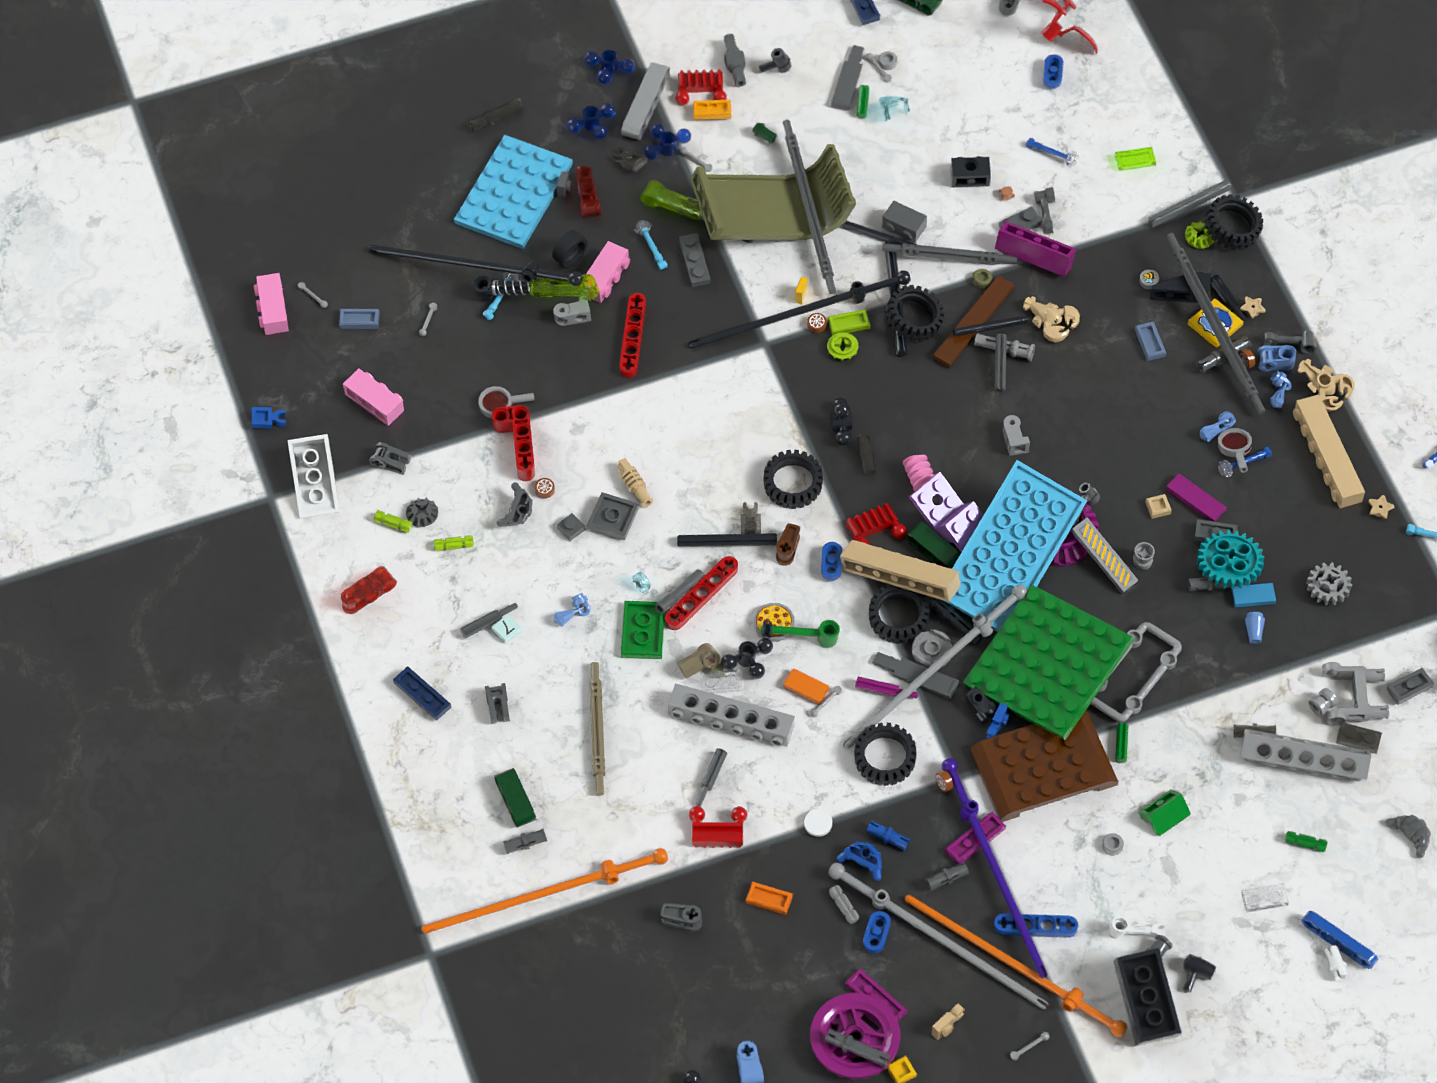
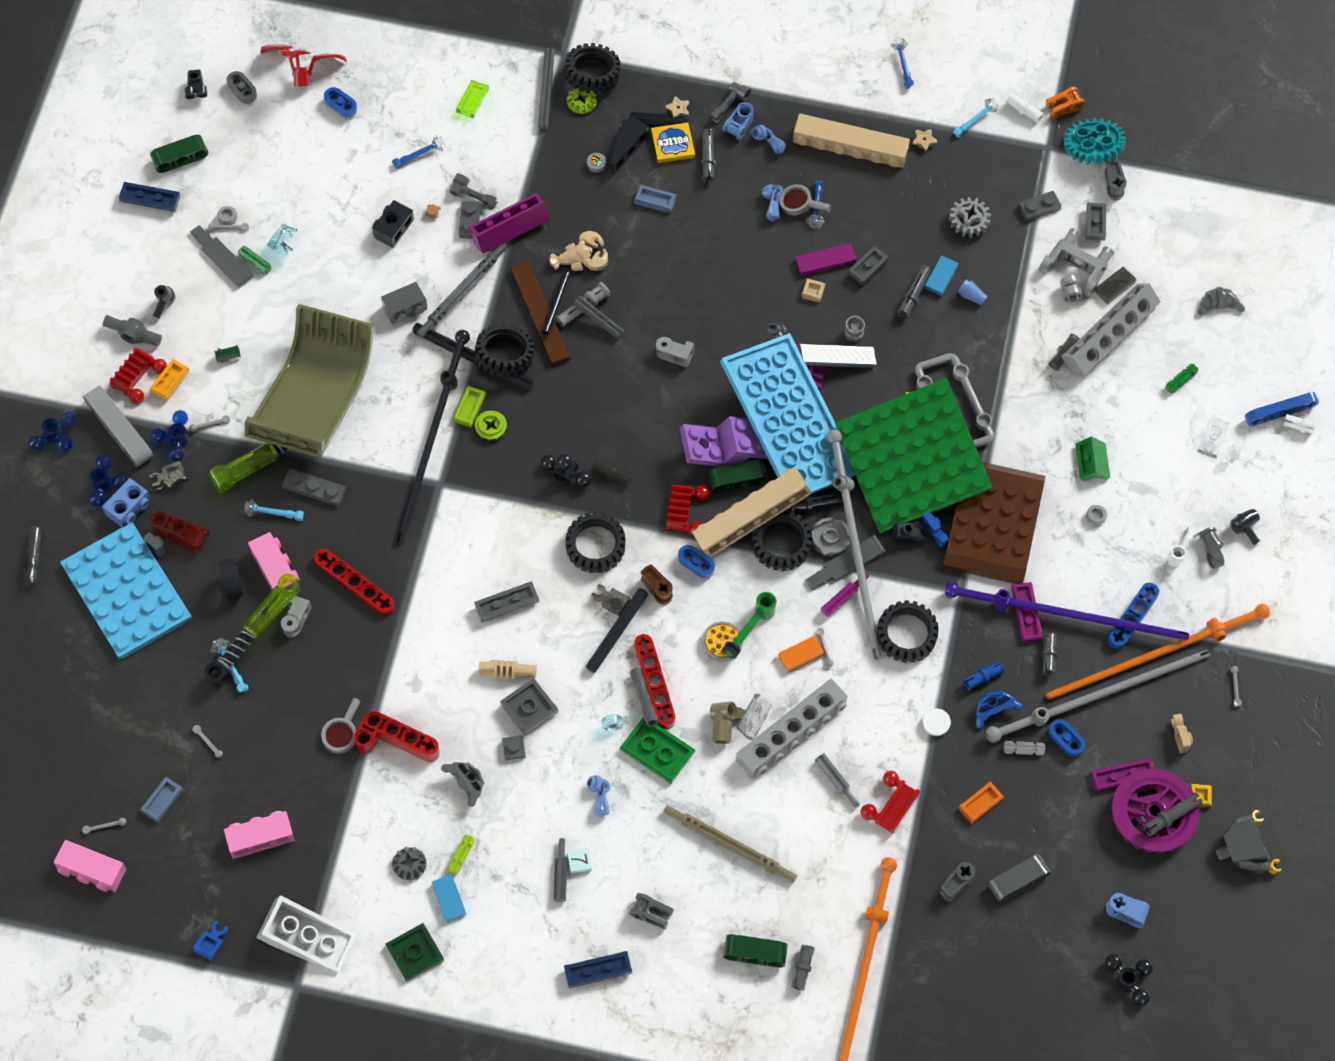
camera: 60 degrees left, 5 degrees up
(351, 559) = (414, 952): none -> dark green tile
(367, 590) = (459, 955): clear red piece -> none
(390, 458) = (329, 864): dark grey piece -> none
(392, 521) = (401, 893): lime axle -> none
(411, 556) = (449, 898): none -> dark azure tile
(528, 272) = (238, 623): black bar -> none
(544, 488) = (458, 746): dark orange tile -> none
(584, 145) = (122, 501): none -> medium blue brick
(693, 447) = (506, 601): none -> dark grey plate
(718, 963) = (1018, 878): none -> dark grey beam
(756, 670) = (761, 682): black piece -> none
(801, 290) = (412, 422): yellow tile -> none
(816, 322) = (451, 431): dark orange tile -> none
(824, 261) = (333, 364): dark grey axle -> none
(874, 233) = (402, 329): black piece -> none
(918, 470) = (663, 442): bright pink piece -> none
(944, 781) = (962, 602): dark orange tile -> none
(982, 278) = (502, 281): olive tile -> none
(1121, 742) = (1010, 451): green axle -> none
(1147, 997) = (1256, 572): black brick -> none
(1215, 323) = (680, 140): dark grey axle -> none
(1230, 559) = (905, 269): teal gear -> none
(1247, 358) = (725, 142): dark orange tile -> none
(1325, 384) = (787, 103): tan animal -> none
(1390, 634) = (1039, 206): none -> dark grey plate

